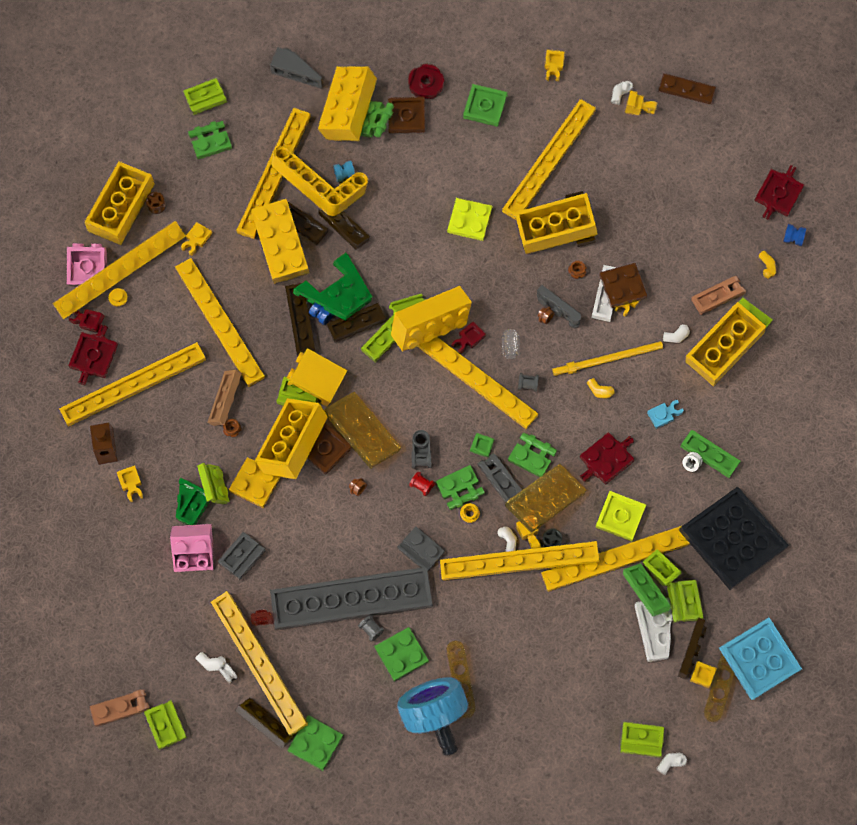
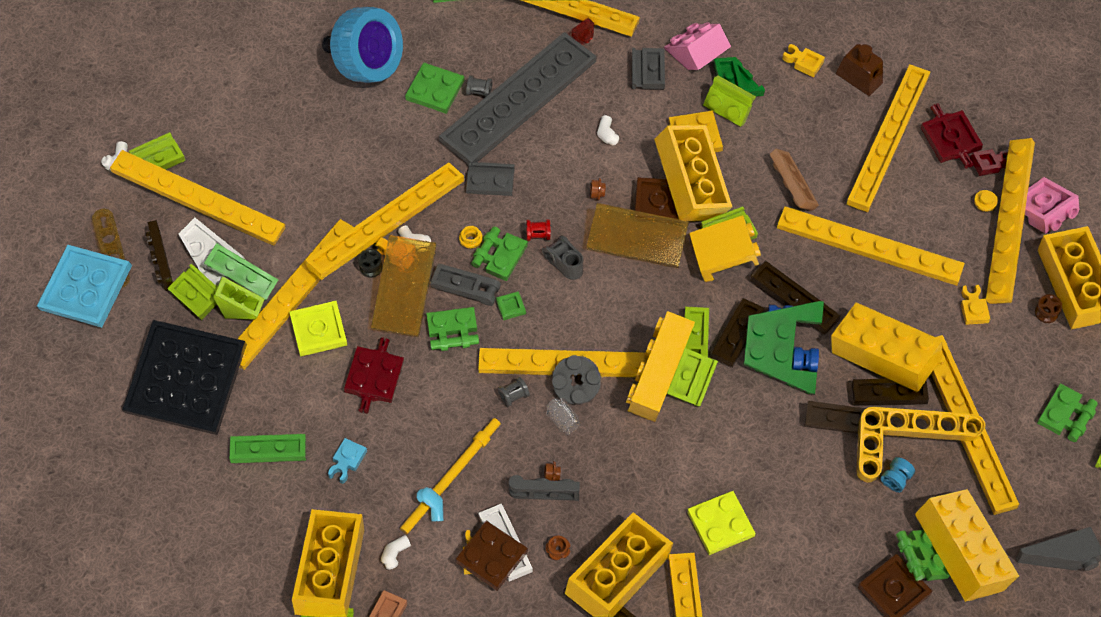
camera: 140 degrees right, 10 degrees down
(232, 423) = (764, 157): dark orange plate -> none
(314, 527) = (605, 133): none -> white arm
(330, 273) = (810, 362): none -> blue wheel
(465, 677) = (362, 103): clear yellow beam -> none
(469, 336) = (611, 396): dark red plate -> none
(488, 352) = (573, 366): none -> dark grey plate
(600, 391) = (434, 434): yellow arm -> none
(632, 344) = (434, 501): none -> medium azure arm
(637, 679) = (197, 197): none -> yellow plate
(690, 467) = (281, 426): white bush -> none
(703, 674) = (134, 242): yellow plate -> none

